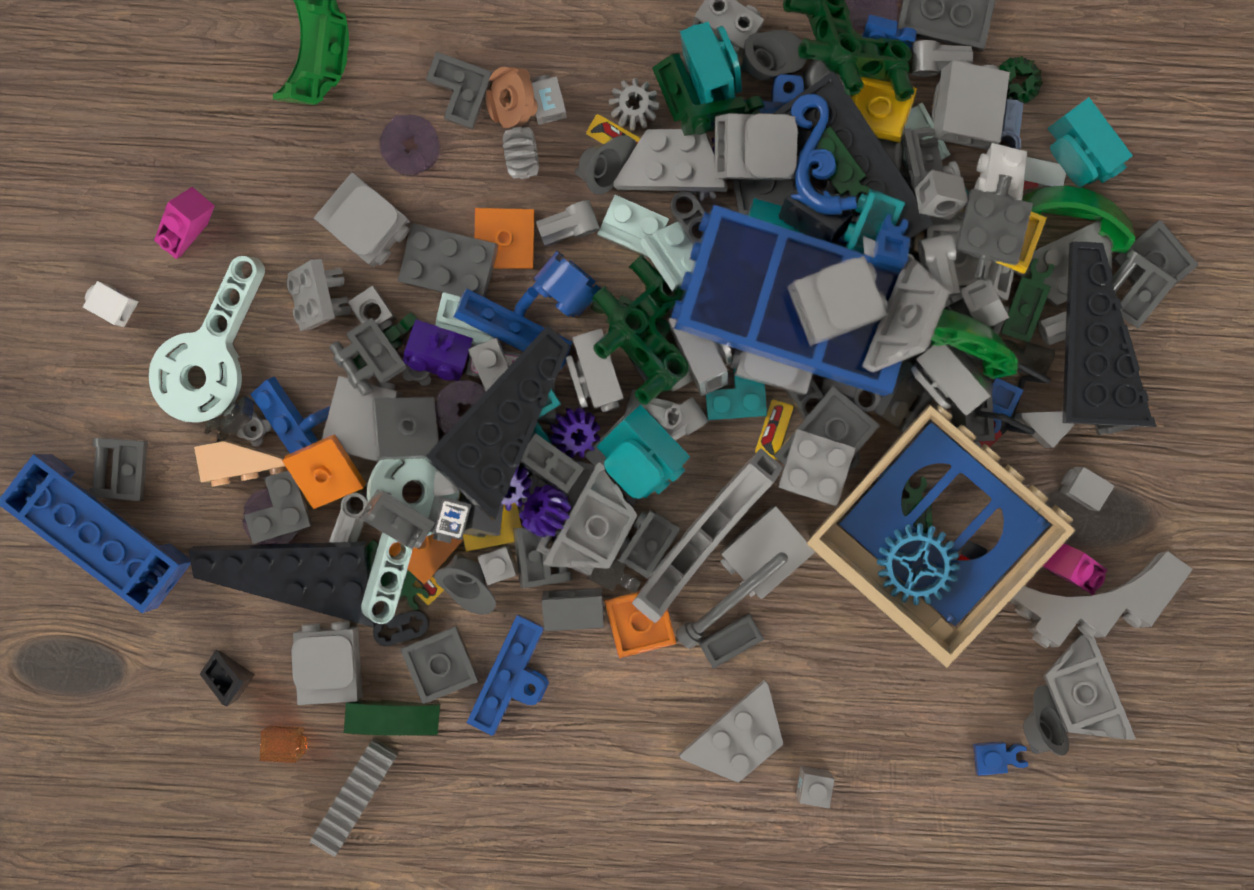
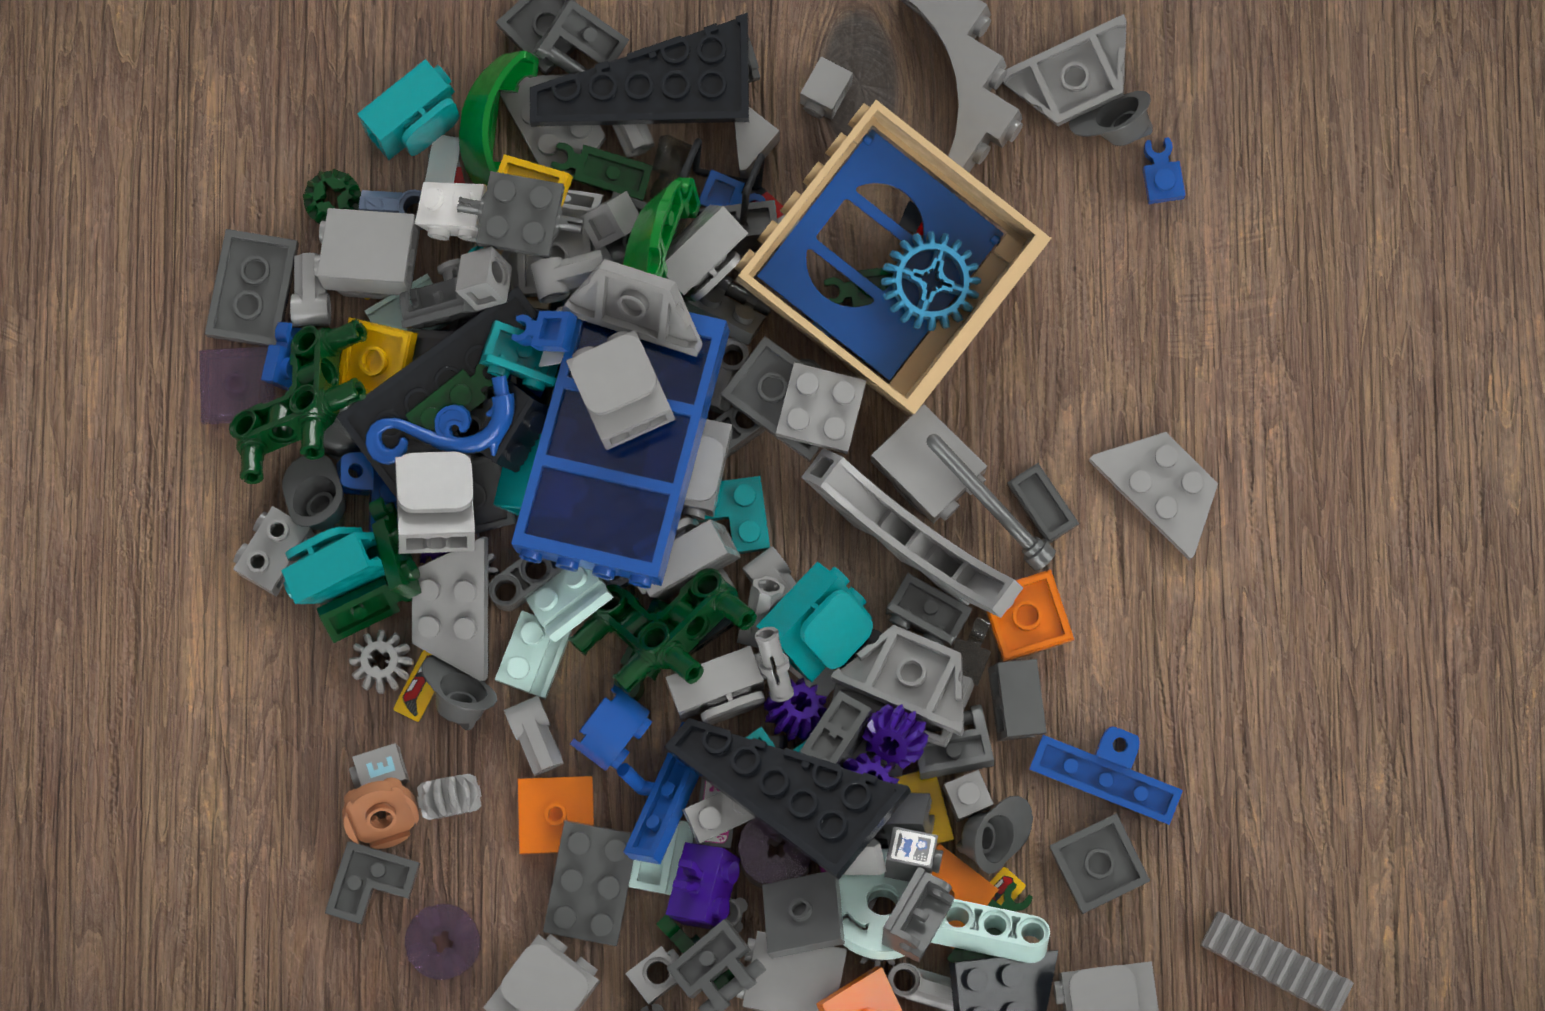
camera: 90 degrees left, 10 degrees down
(391, 718) = (1171, 919): dark green slope -> none
(404, 634) = (1064, 911): black beam -> none
(606, 416) = (779, 681): none -> light grey pin
(774, 427) = (774, 466): sticker -> none
(815, 787) = (1214, 389): light grey brick -> none
(1076, 568) = (924, 95): dark pink slope -> none

